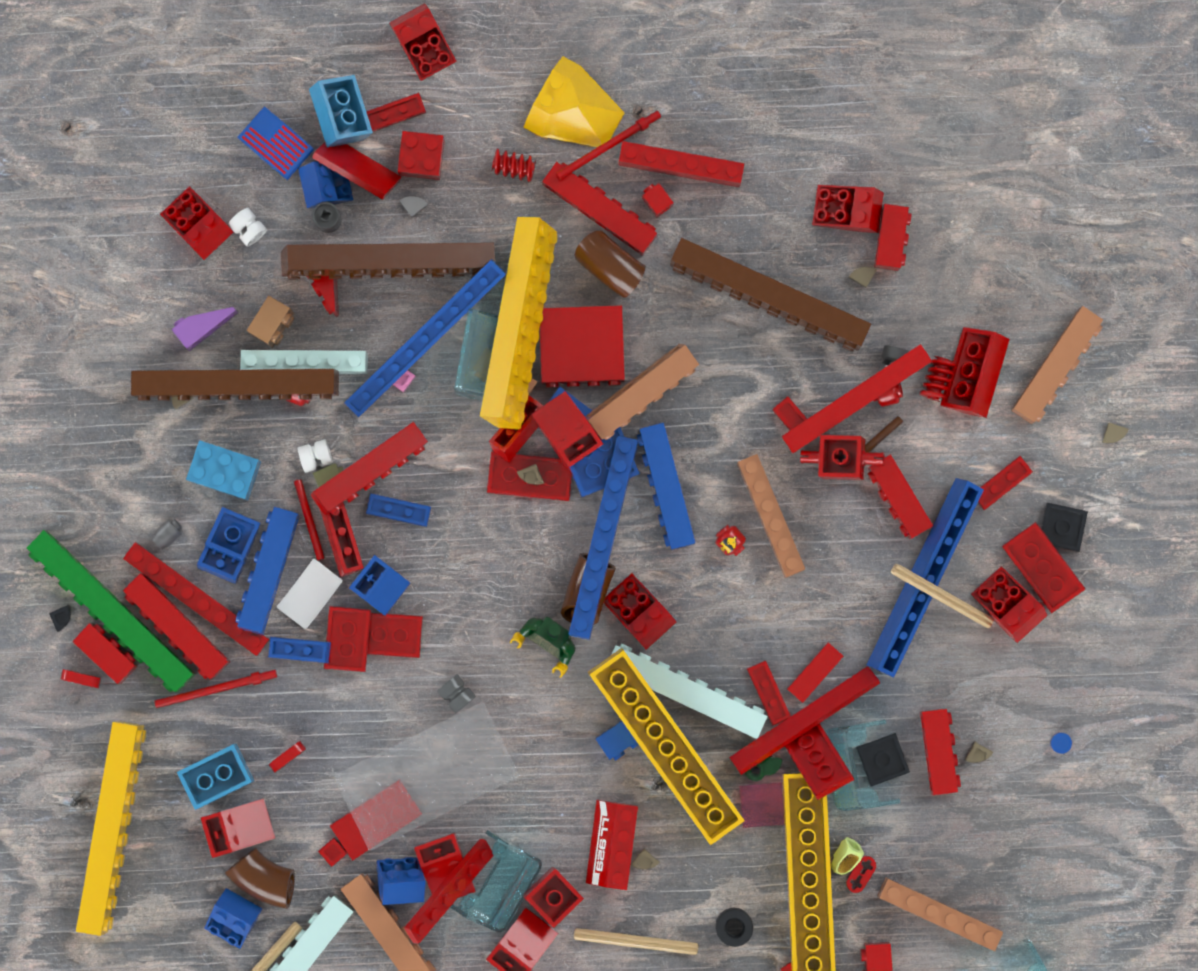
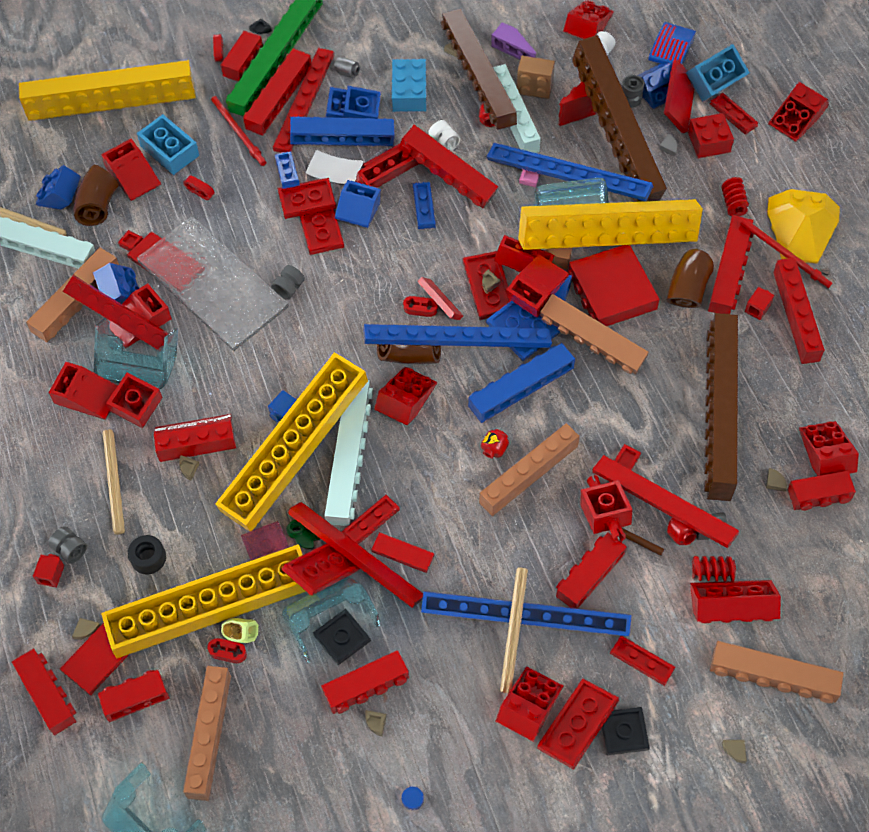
camera: 70 degrees right, 25 degrees down
(528, 556) = (420, 306): none -> red beam
(533, 535) = (439, 297): none -> tile
(550, 637) = (355, 339): dark green torso -> none

